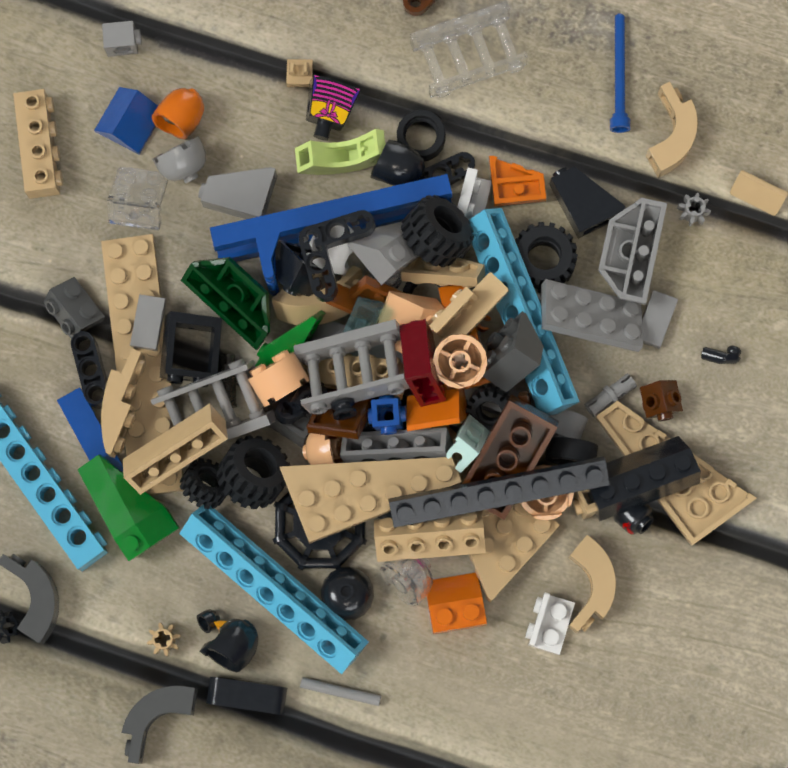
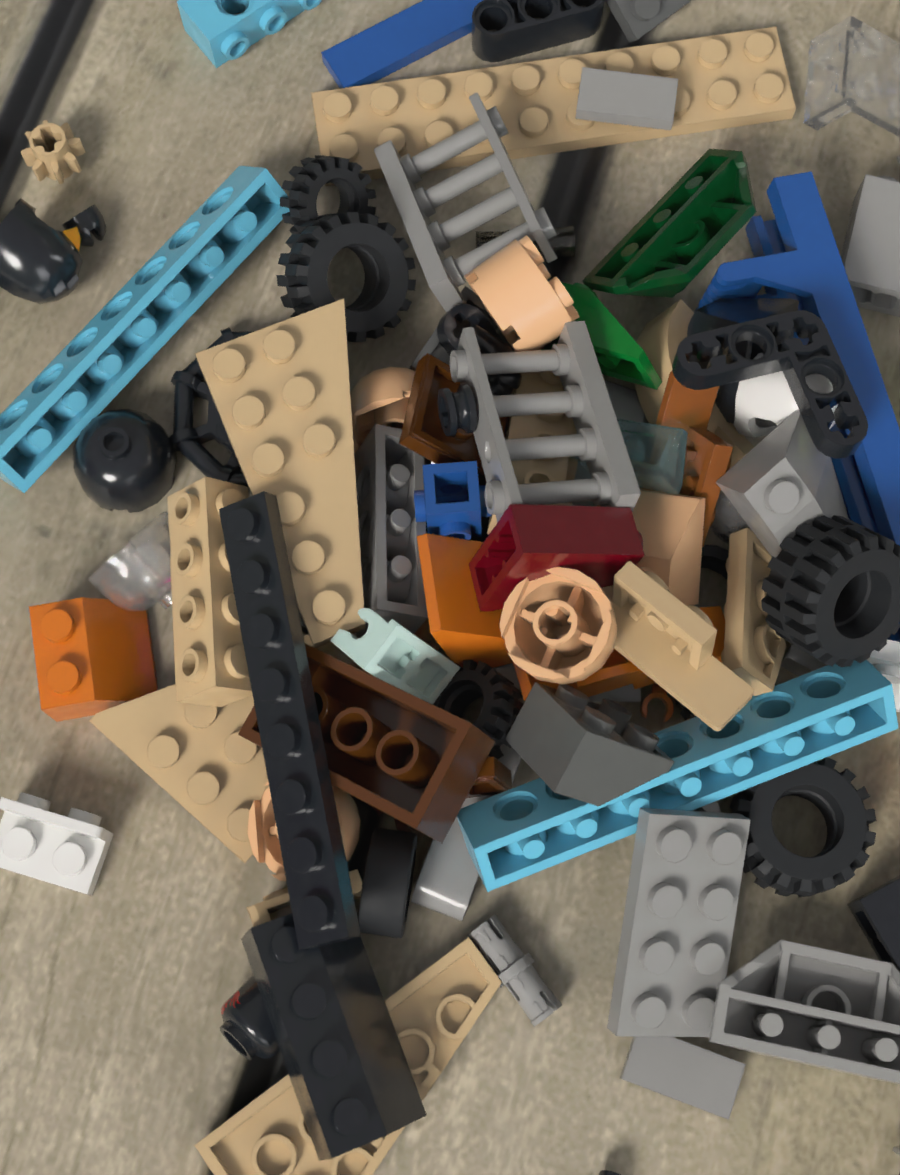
camera: 85 degrees right, 5 degrees down
(116, 413) = (459, 44): tan slope -> none
(133, 519) = (273, 82): green wedge -> none
(174, 449) = (384, 131): tan brick -> none
(193, 322) = (631, 171): black window -> none
(602, 579) = (152, 942): tan arch -> none
(661, 399) = (504, 1078): reddish brown brick -> none

